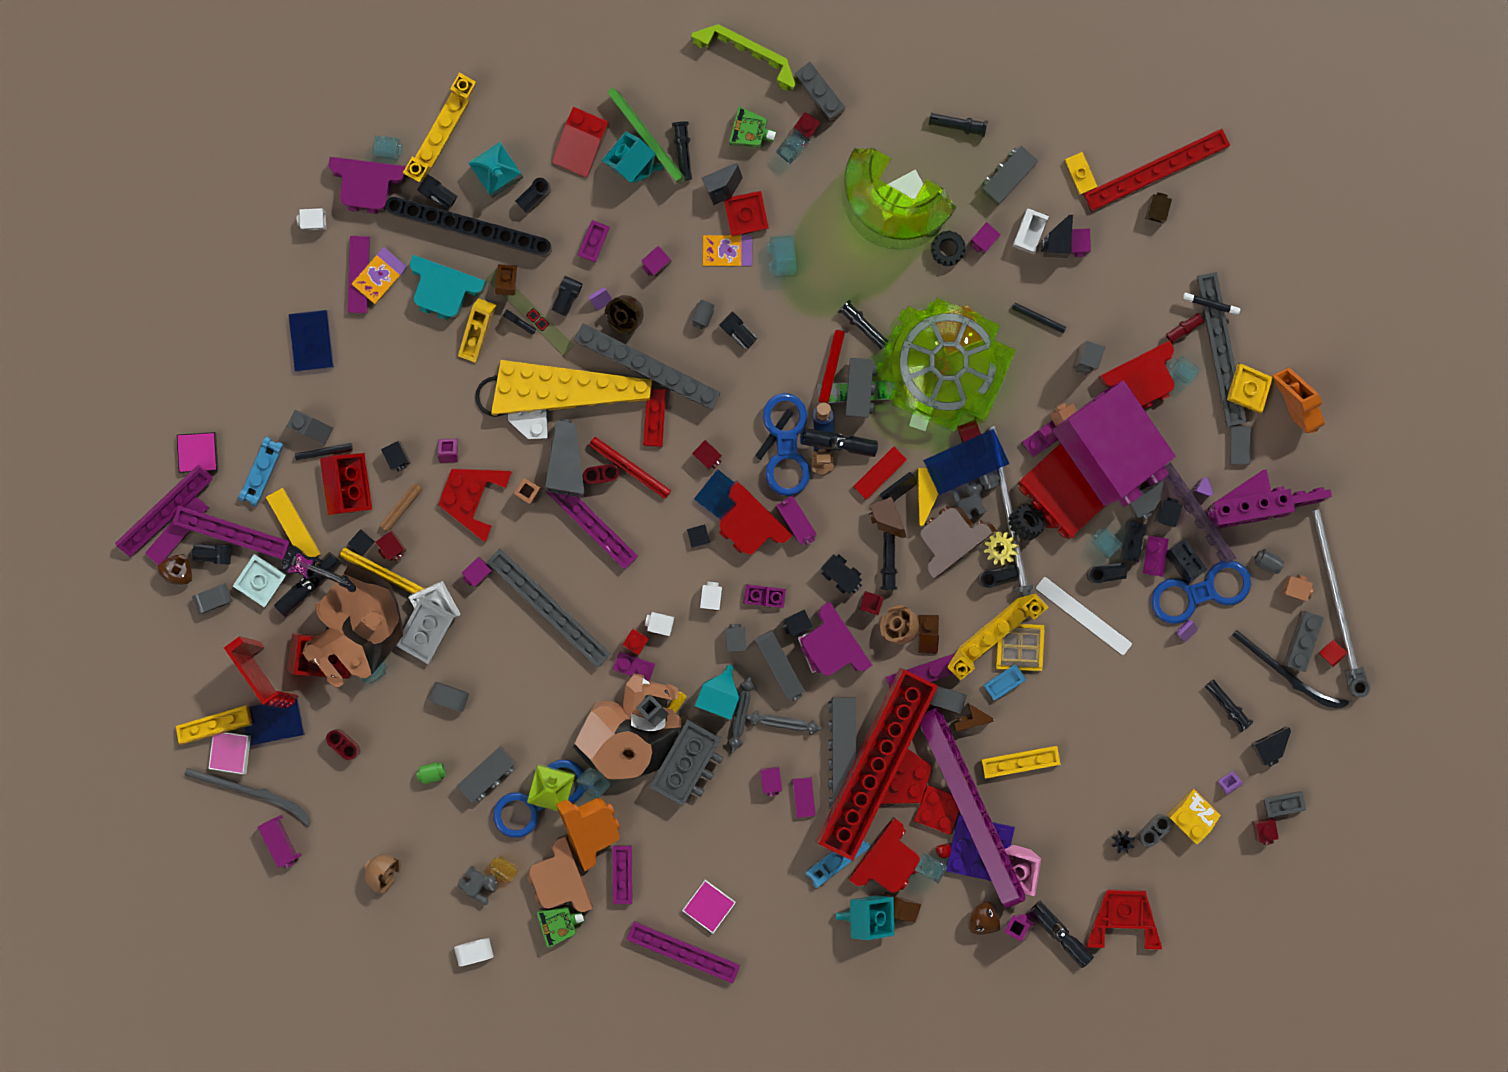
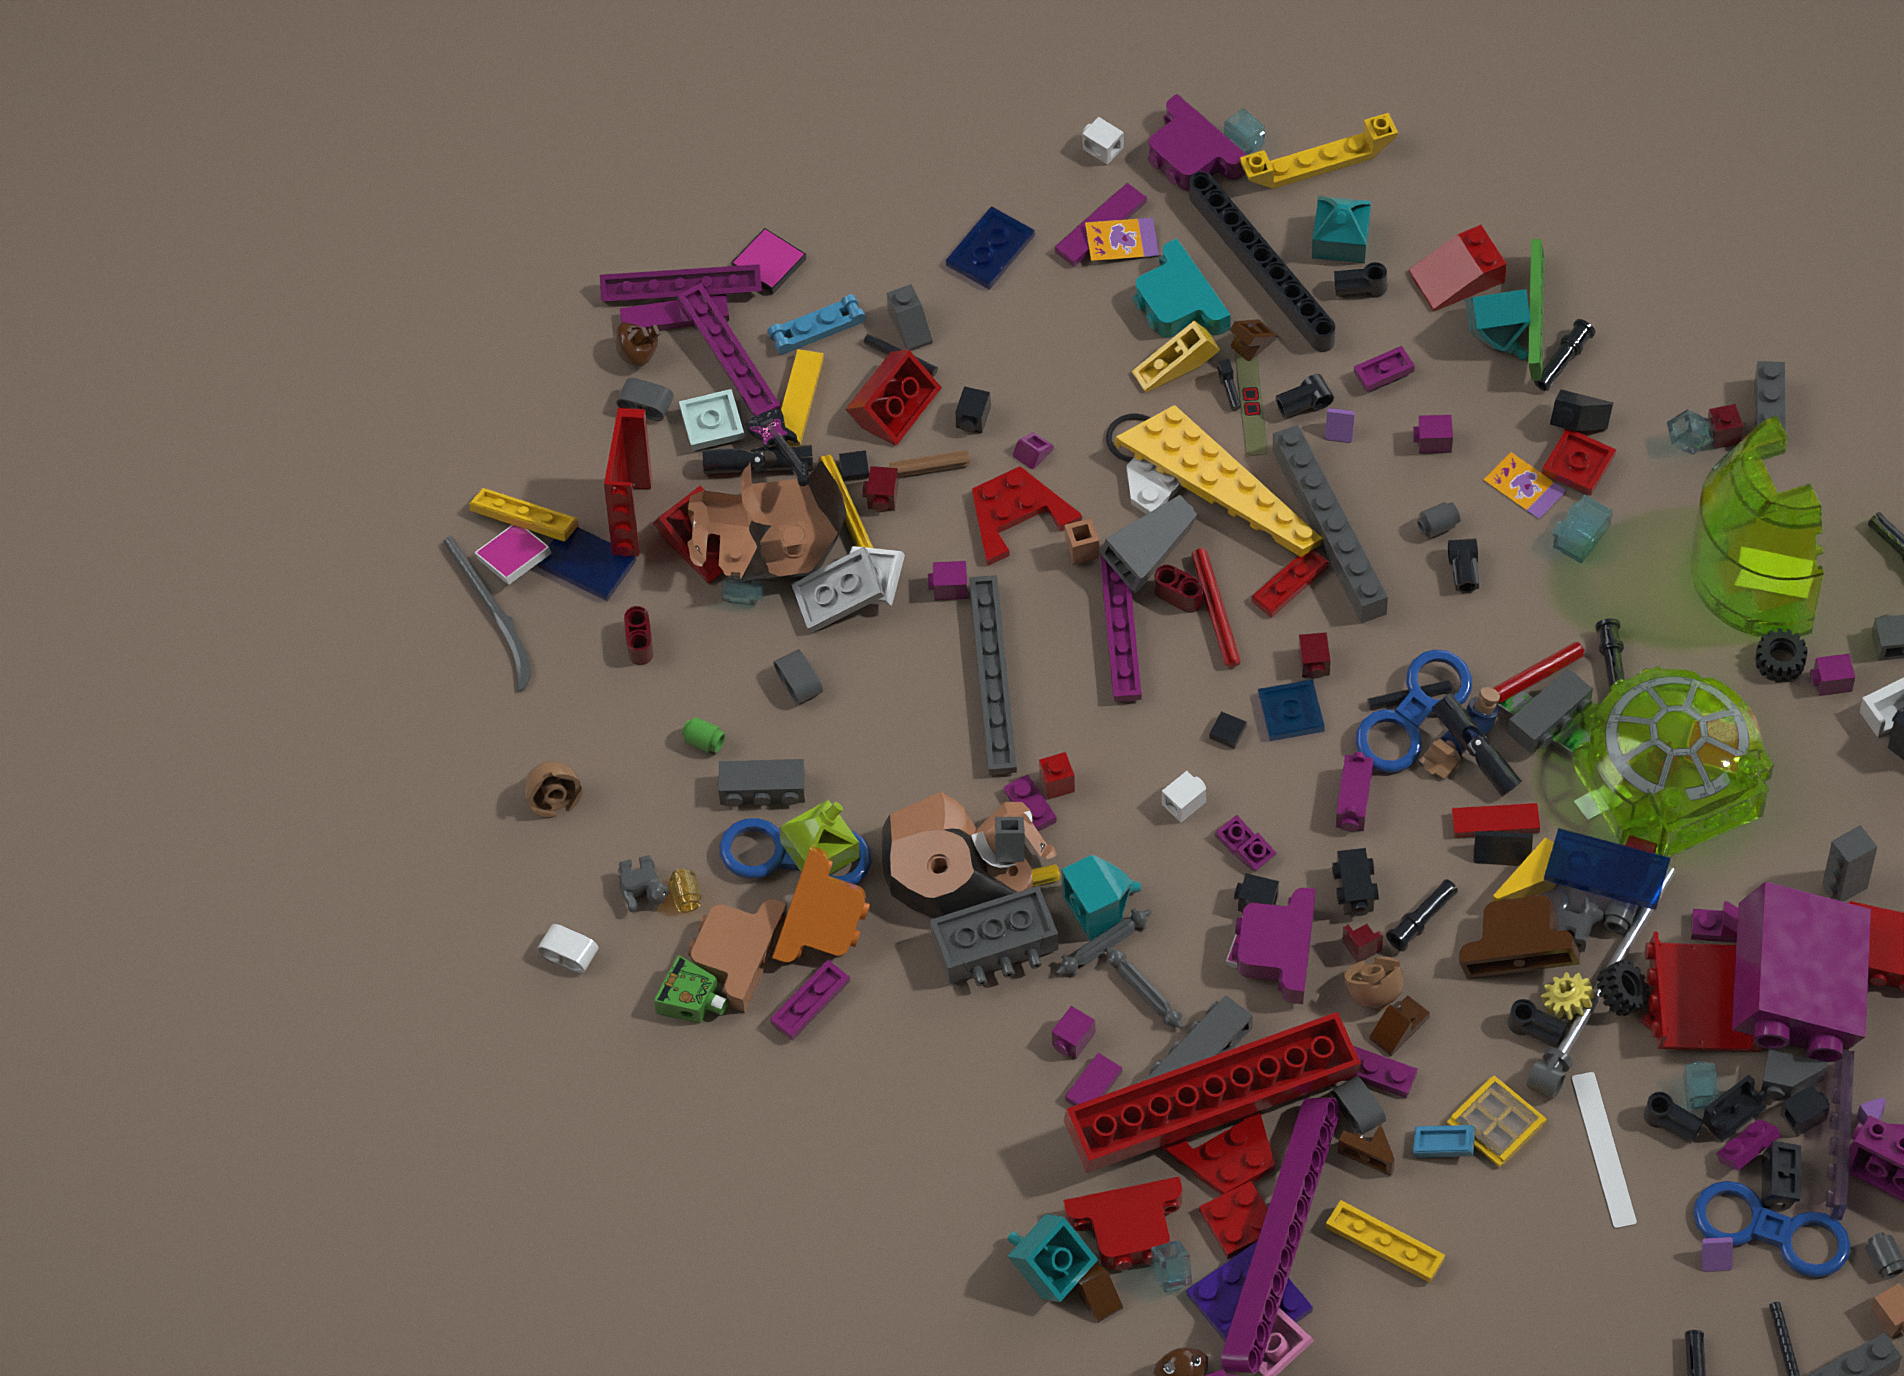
camera: 45 degrees right, 30 degrees down
(217, 554) = (693, 363): black piece -> none
(278, 842) = (473, 675): magenta brick -> none
(434, 190) = (1257, 203): black piece -> none
(593, 782) = (871, 873): clear light blue brick -> none
(624, 314) = (1352, 451): dark brown cylinder -> none
(659, 623) = (1101, 780): white brick -> none
(683, 952) = (799, 1135): magenta plate -> none
(705, 36) = (1693, 269): lime slope -> none
(709, 906) = (874, 1112): dark pink tile -> none
(735, 638) = (1172, 858): dark grey brick -> none
(750, 130) = (1656, 386): bright green torso -> none
(750, 522) = (1299, 752): red brick -> none
(780, 665) = (1197, 916): dark grey slope -> none
(831, 865) = (1066, 1177): dark azure plate -> none
(887, 518) = (1462, 862): reddish brown slope -> none
(943, 850) = (1203, 1265): red hinge -> none
(994, 631) = (1480, 1072): yellow slope -> none
(1038, 317) = (1825, 799): black bar -> none

